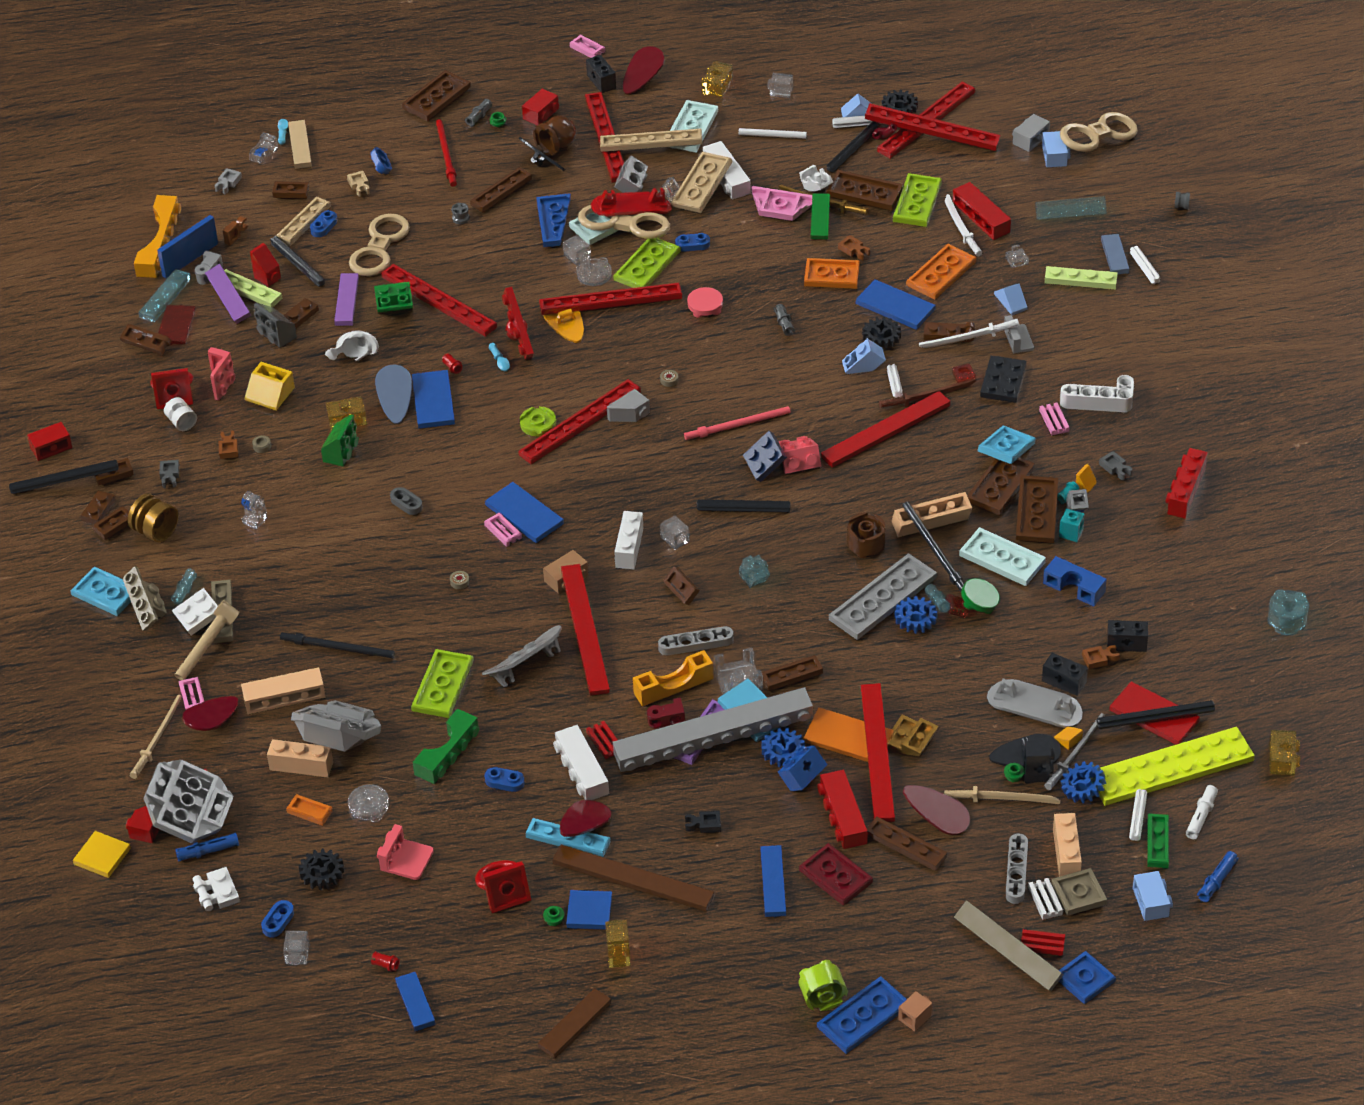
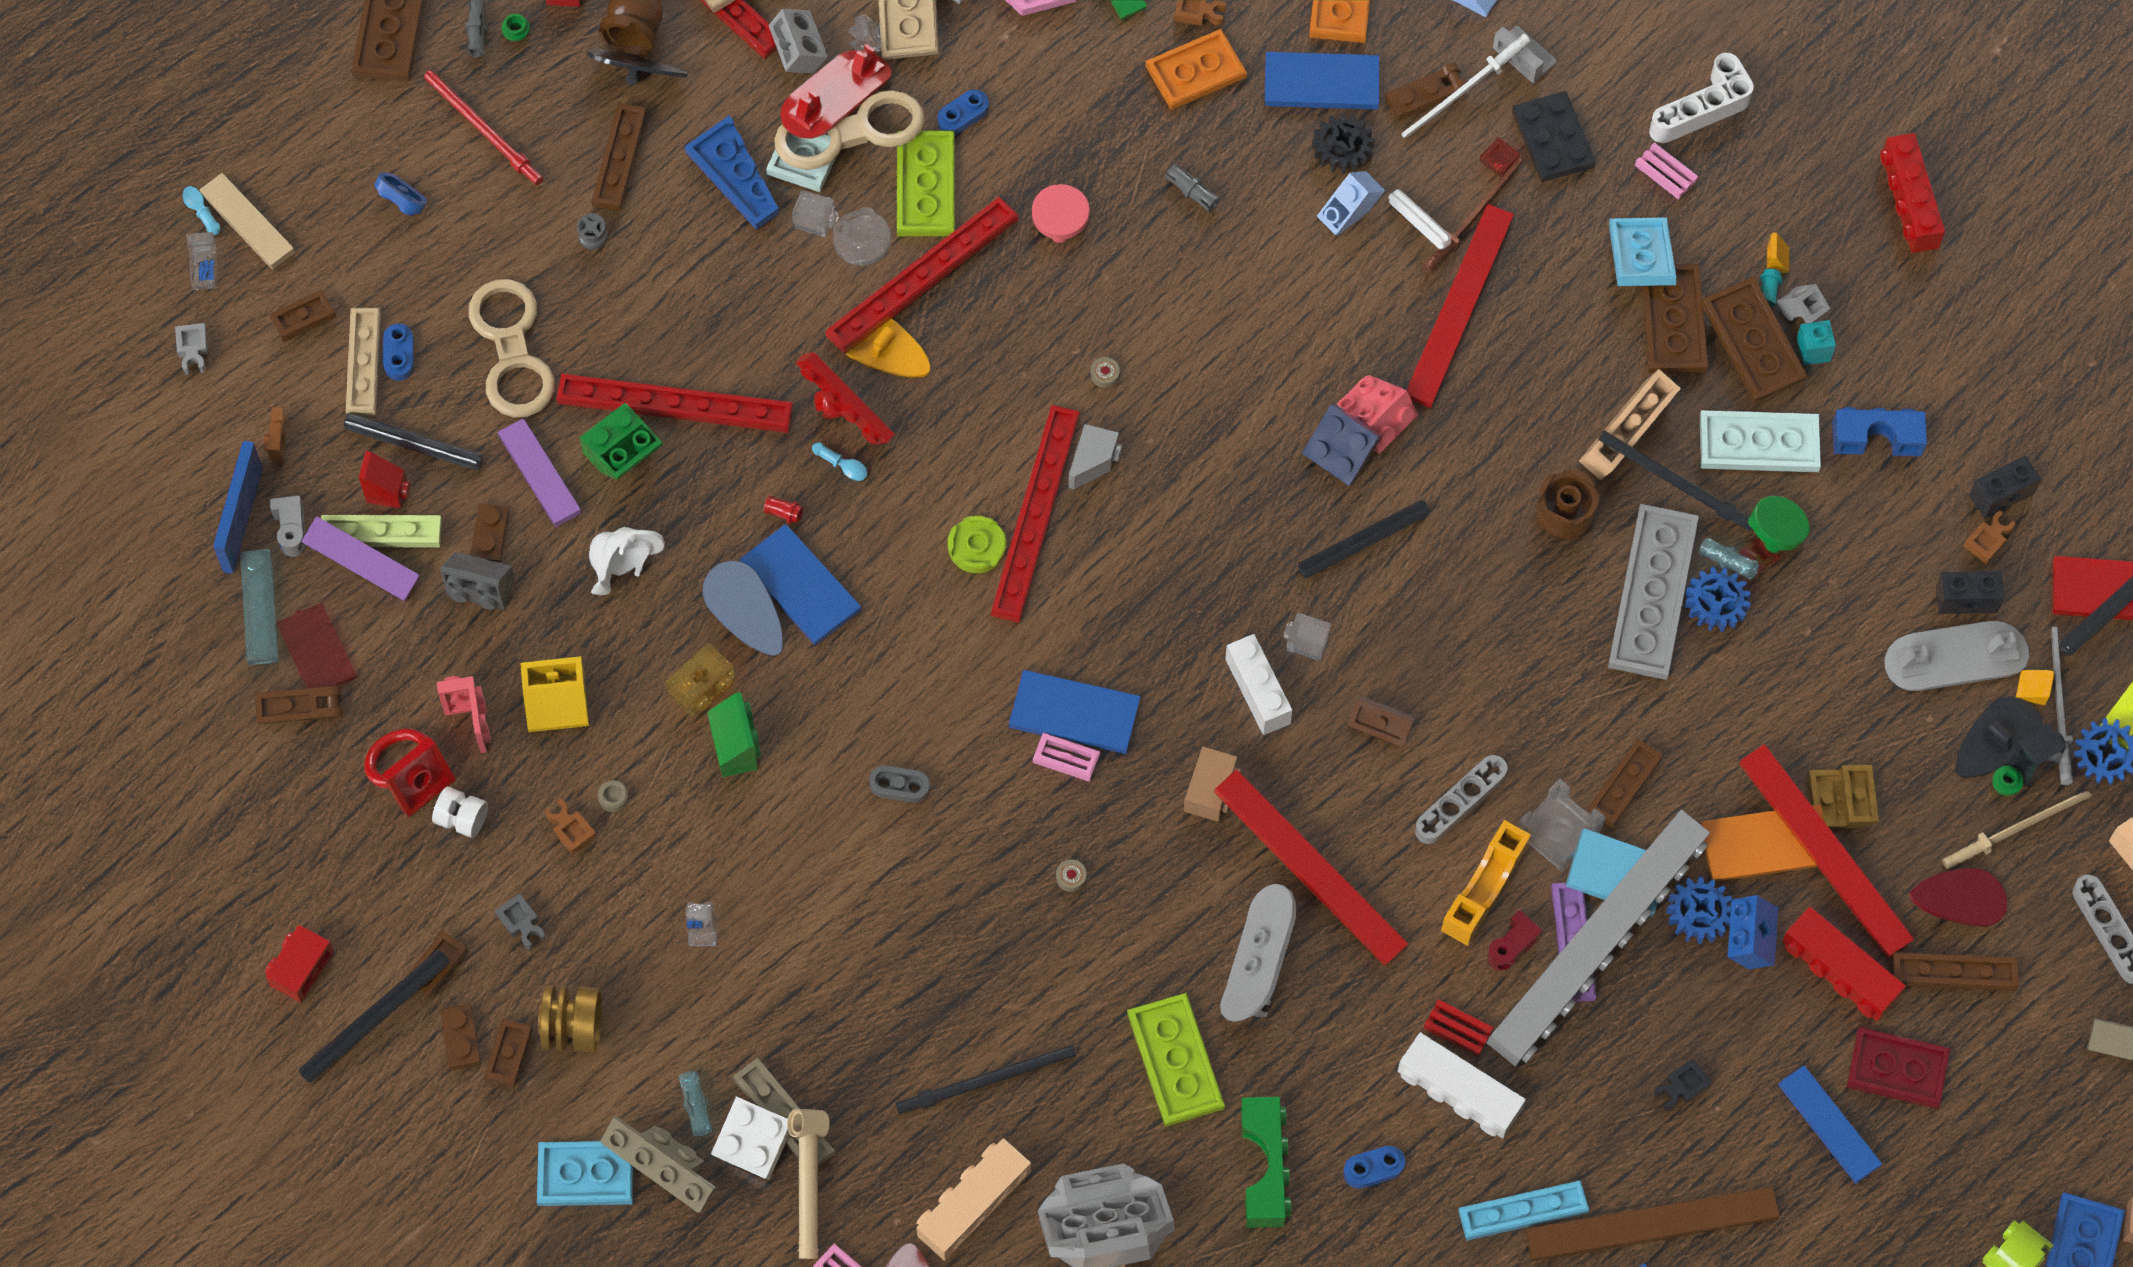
camera: 35 degrees left, 20 degrees up
(166, 211) = (187, 555): light orange arch -> none
(358, 182) = (396, 248): tan plate -> none
(584, 817) = (1530, 1172): dark red shield -> none
(703, 431) = (1220, 441): coral bar -> none
(754, 570) = (1463, 645): clear light blue brick -> none
(1114, 463) = (1797, 208): dark grey plate -> none

